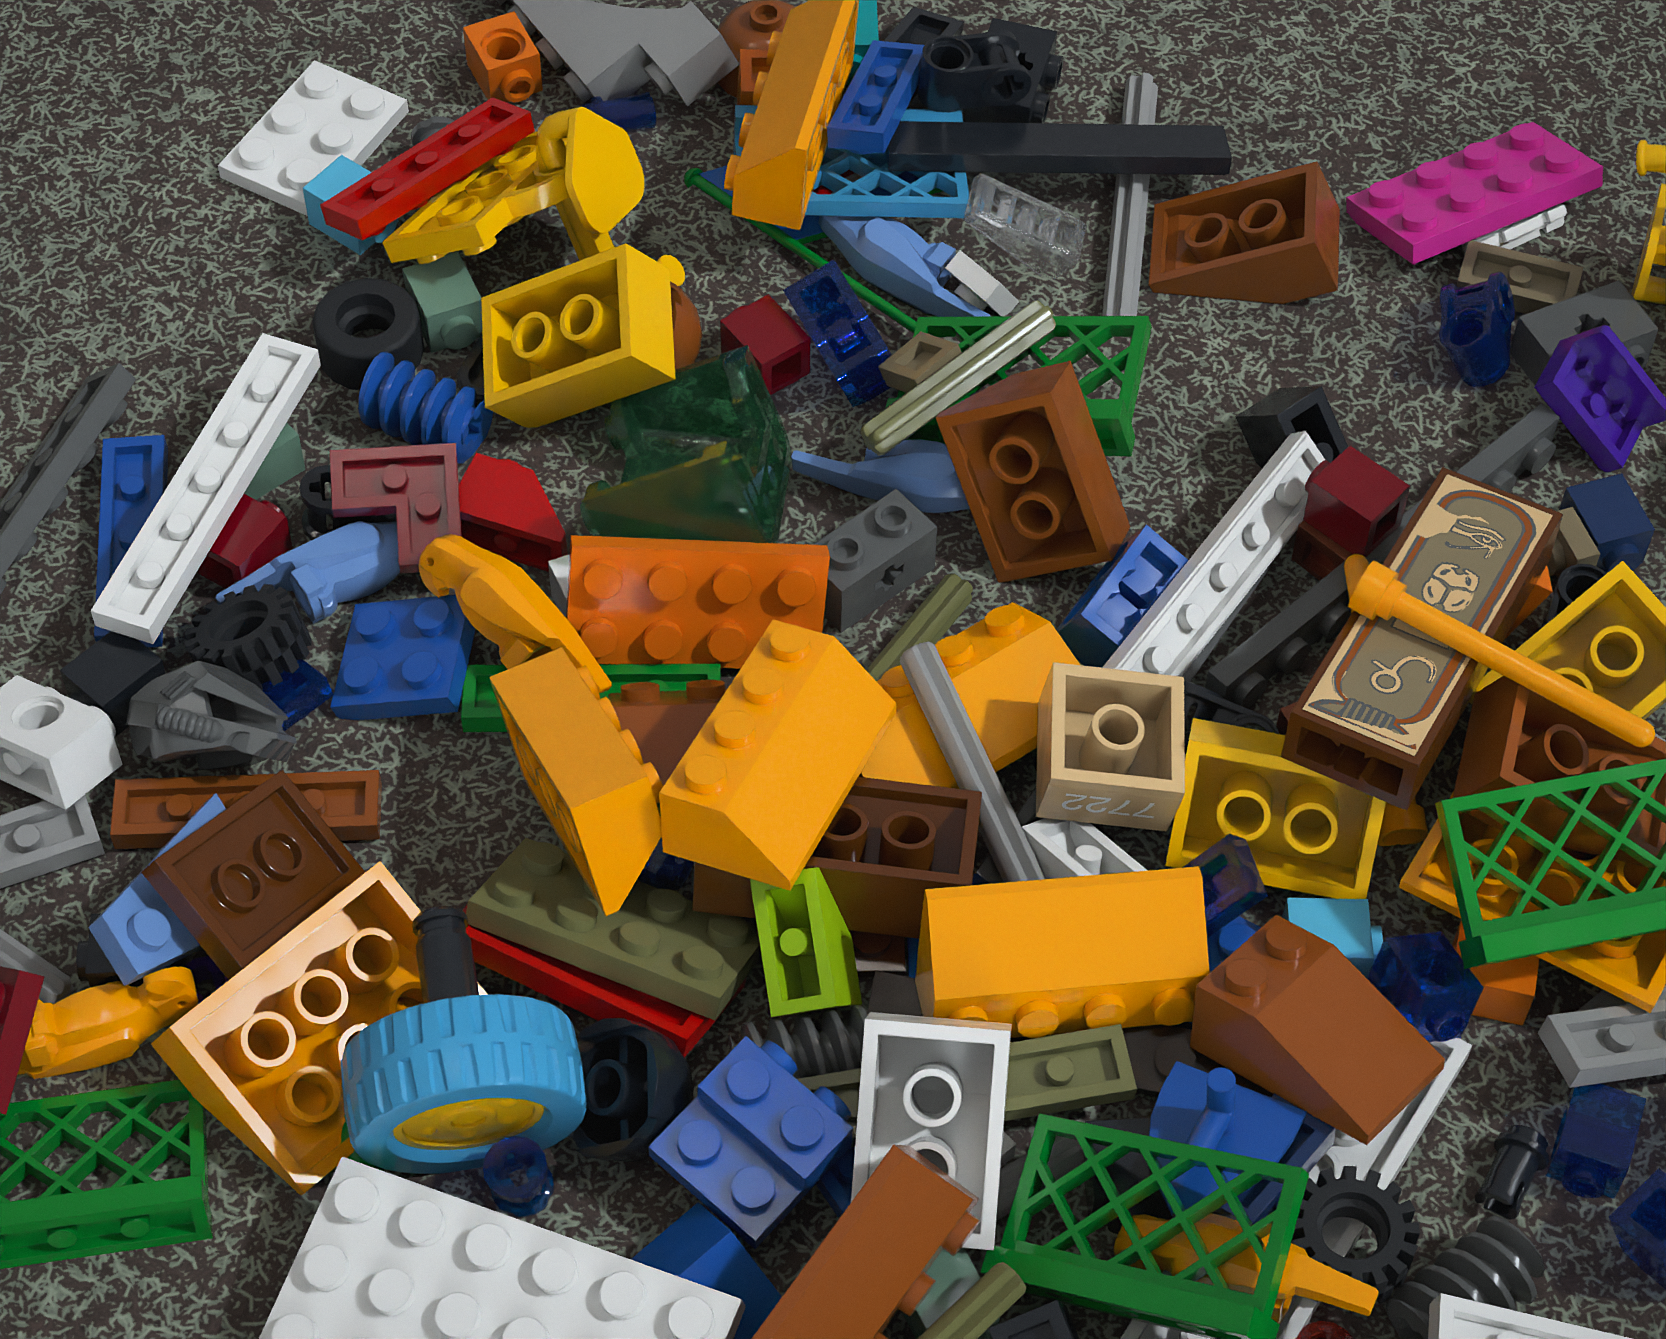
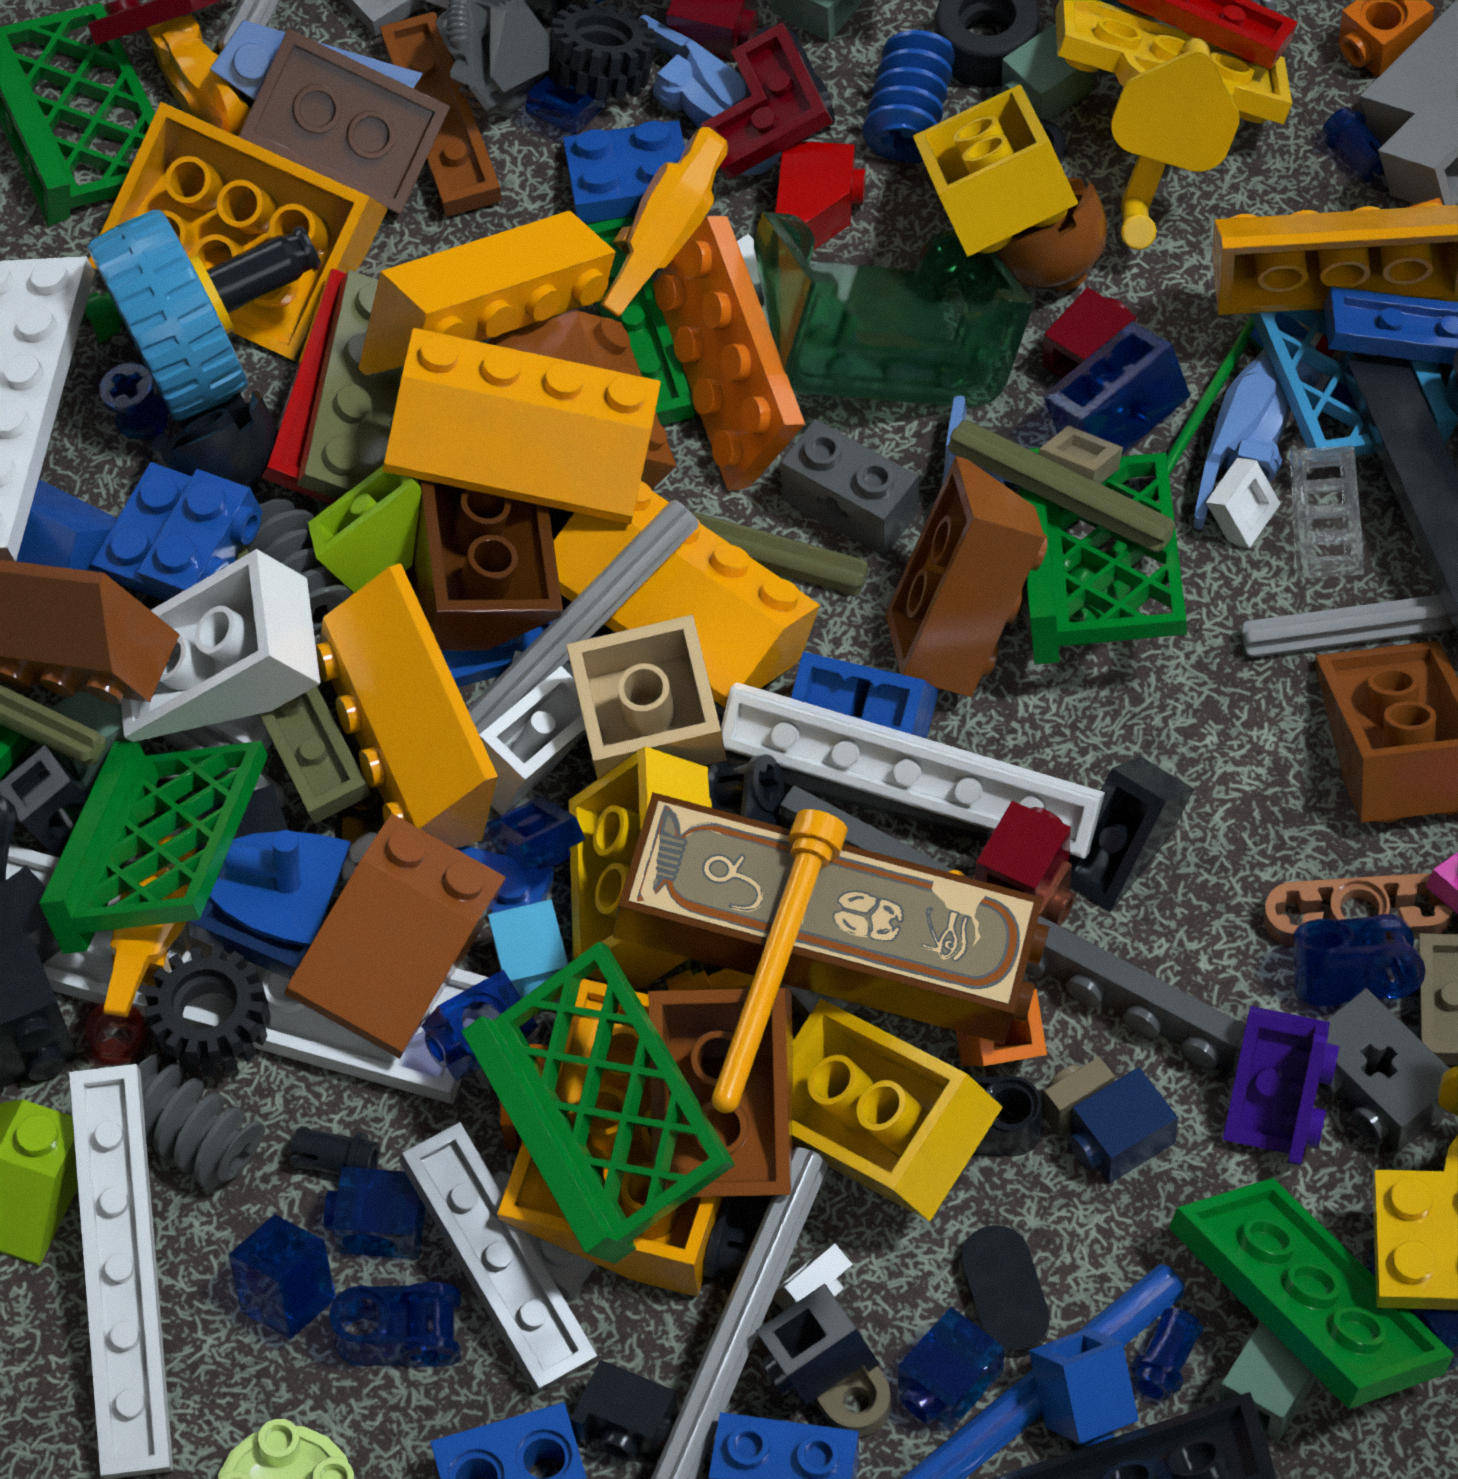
camera: 80 degrees right, 5 degrees up
(1398, 337) = (1373, 889): none -> nougat beam

